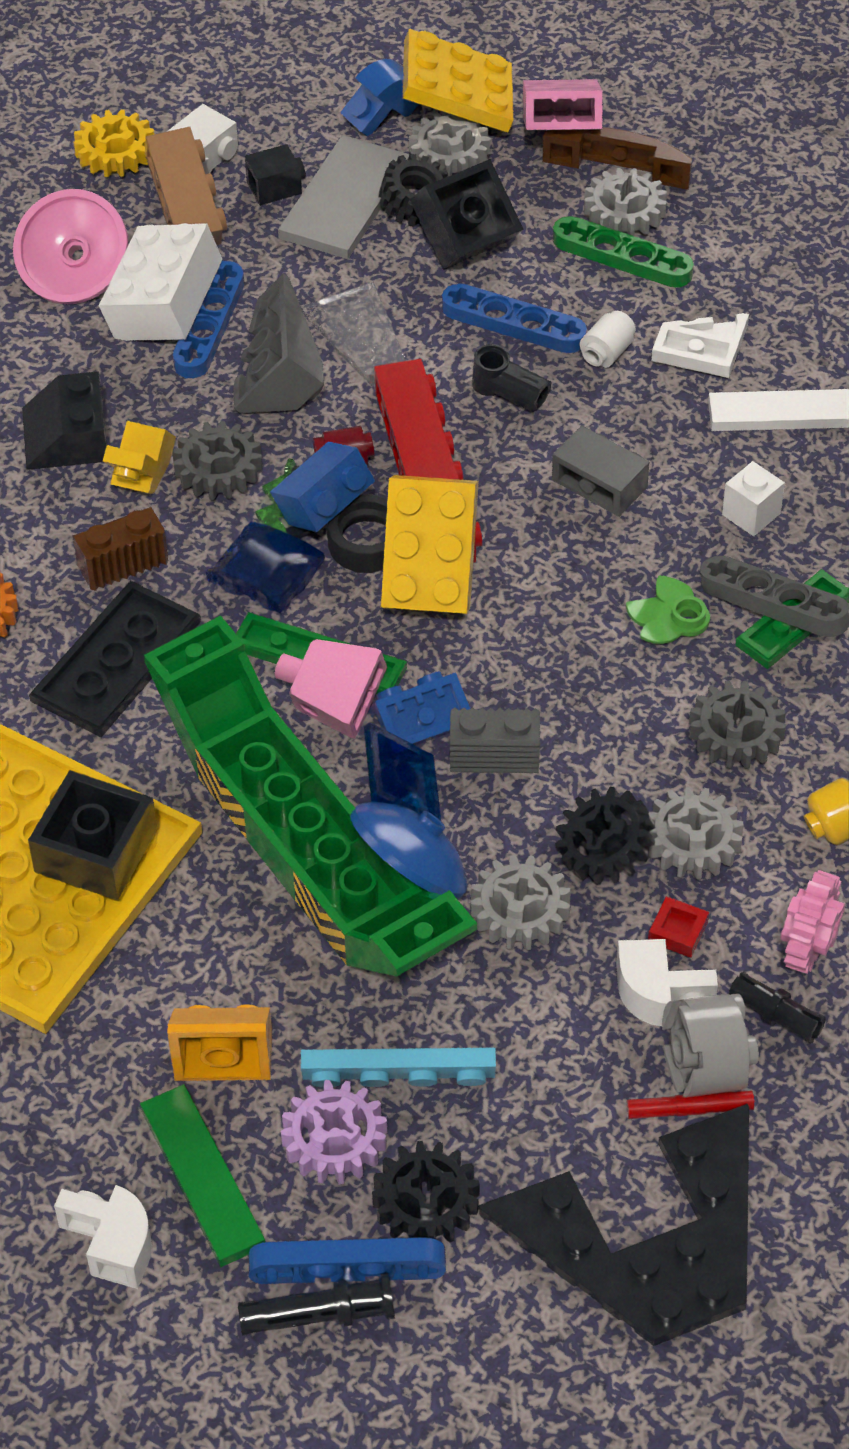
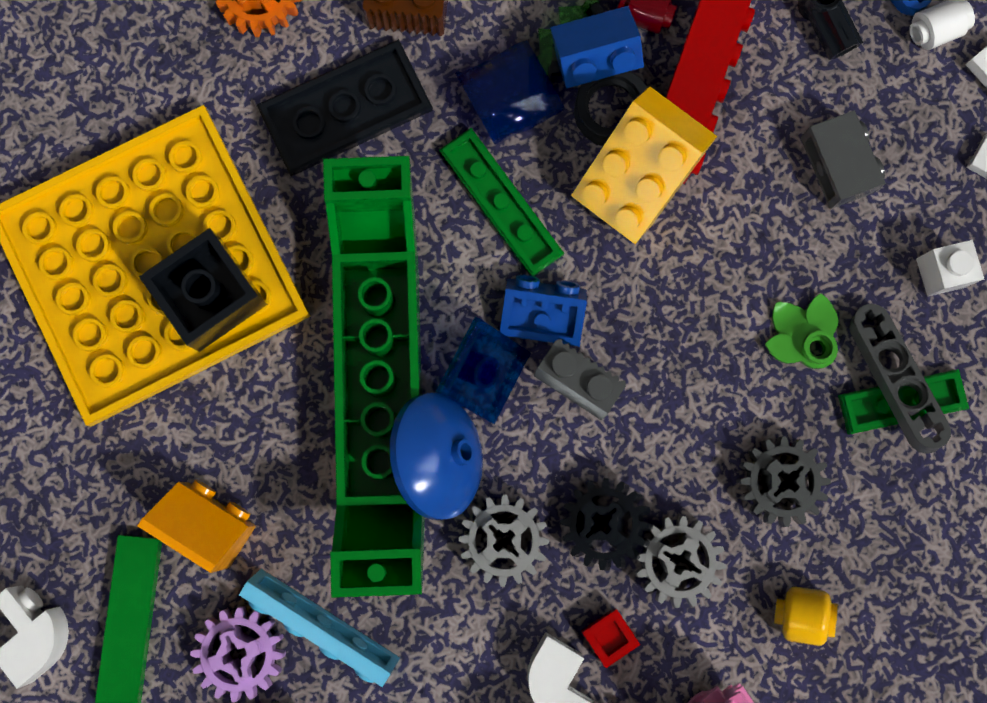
camera: 30 degrees right, 30 degrees up
(334, 682) = (486, 247): bright pink torso -> none

